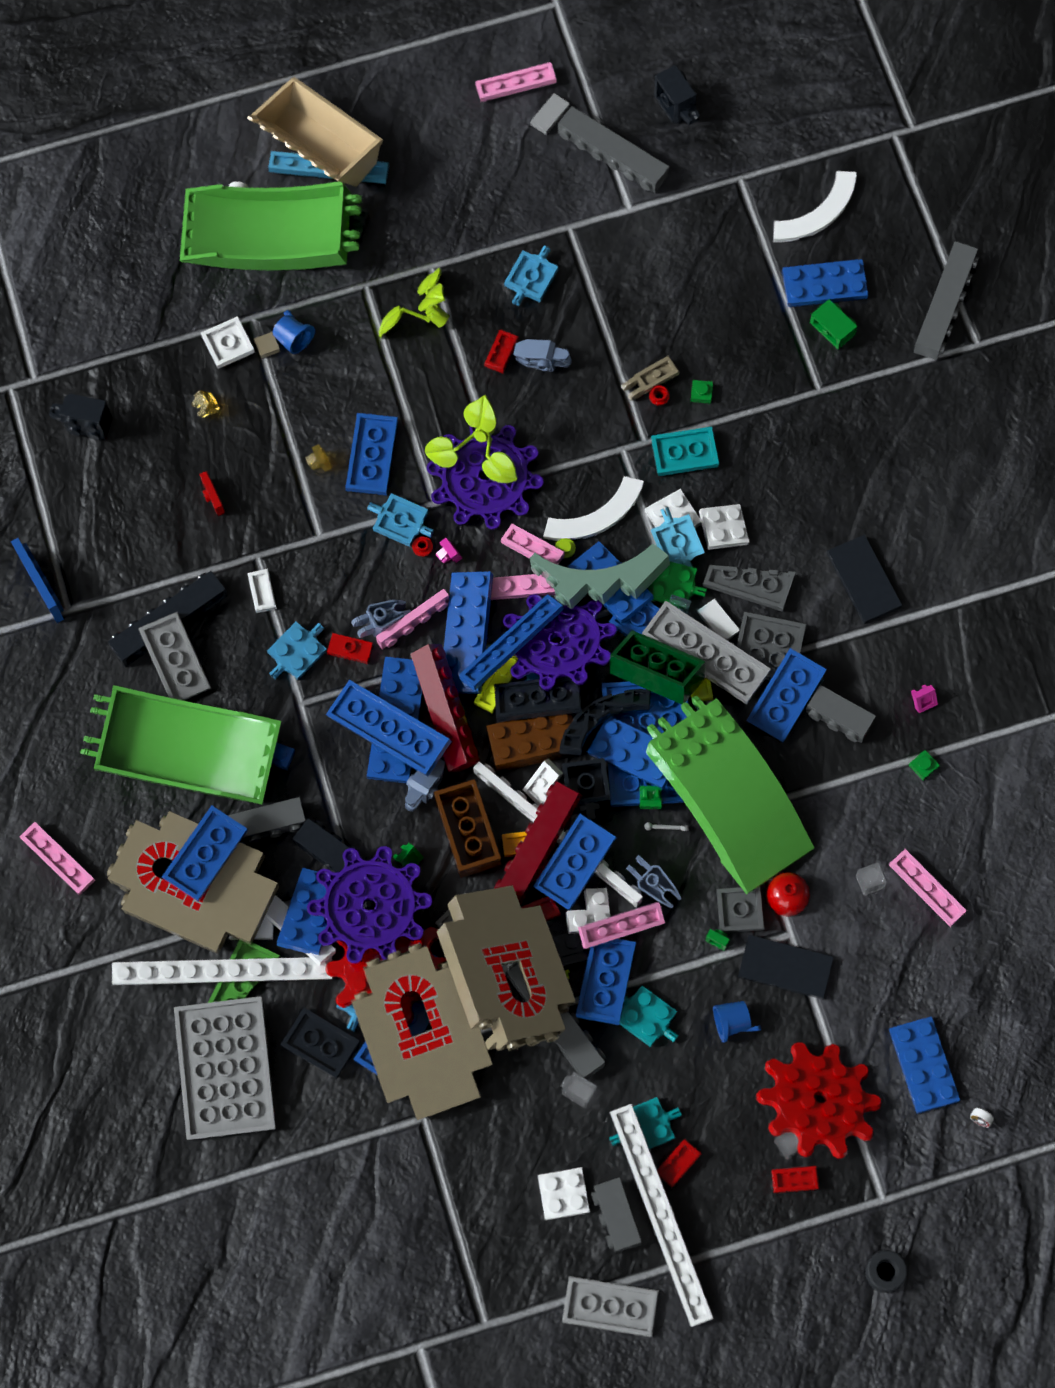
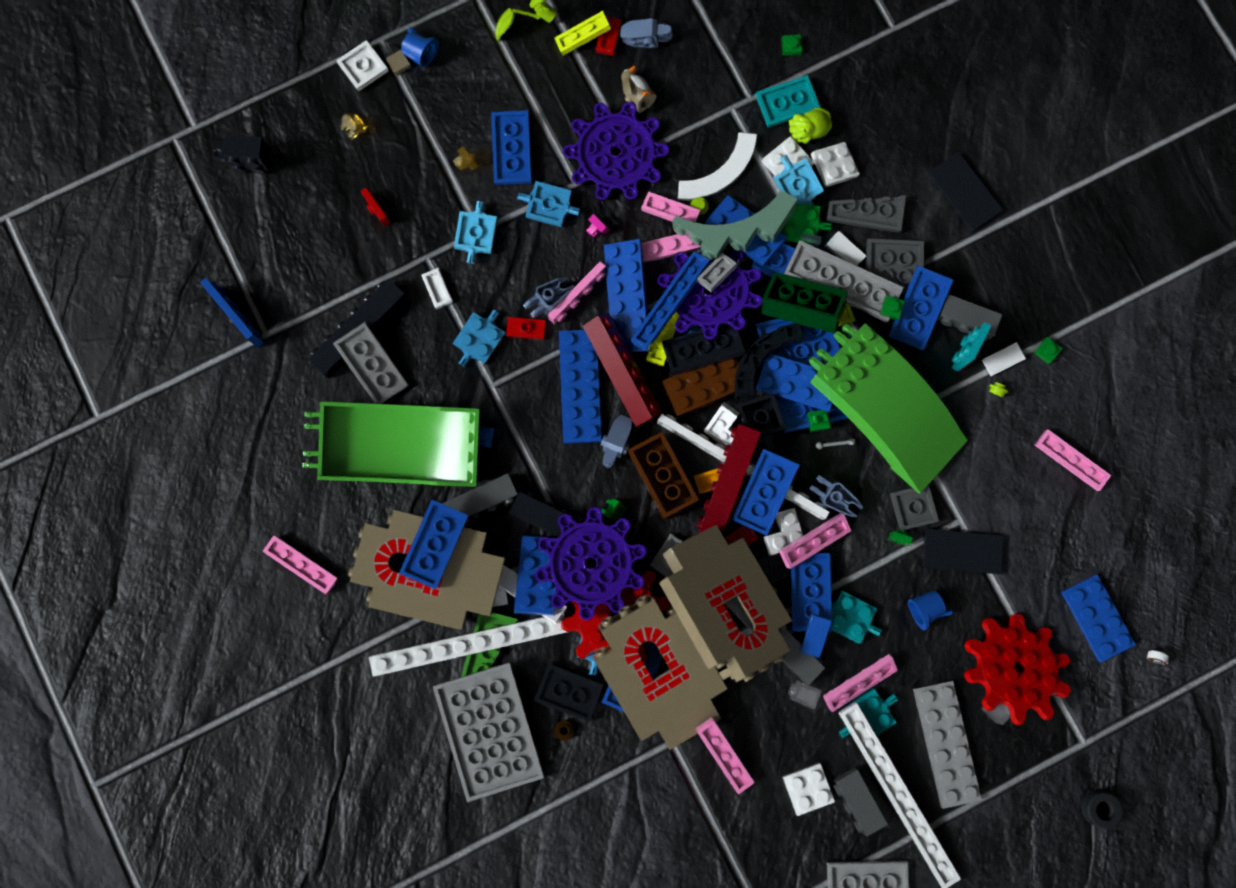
camera: 15 degrees left, 10 degrees up
(311, 1088) = (564, 737): none -> dark brown plate
(315, 537) = (475, 232): none -> medium azure plate
(388, 728) = (576, 397): blue plate -> none
(422, 552) = (572, 230): red plate -> none
(472, 344) = (582, 33): none -> neon yellow plate
(476, 1137) = (724, 755): none -> bright pink plate
(482, 417) = (609, 99): lime plant -> none
(520, 413) = (637, 90): none -> dark tan animal
(567, 620) = (717, 272): none -> light grey plate
(599, 1023) = (815, 635): none -> blue tile
(643, 1087) = (860, 683): none -> bright pink plate
(650, 377) = (745, 39): dark tan hinge -> none
(659, 390) = (757, 50): red plate -> none
(678, 1163) = (903, 744): red plate -> none
(704, 480) = (810, 125): none -> lime hair
(727, 1172) = (947, 744): none -> light grey plate
(752, 688) = (892, 307): none -> green plate
(788, 894) = (952, 486): red cylinder -> none
(795, 1179) = (1007, 741): red plate -> none
(829, 745) = (970, 346): none -> teal plate
(858, 797) = (998, 389): none -> lime plate
(871, 879) = (1023, 461): clear brick -> none
(872, 766) = (1003, 359): none -> white tile
(924, 698) = (1038, 291): dark pink tile -> none

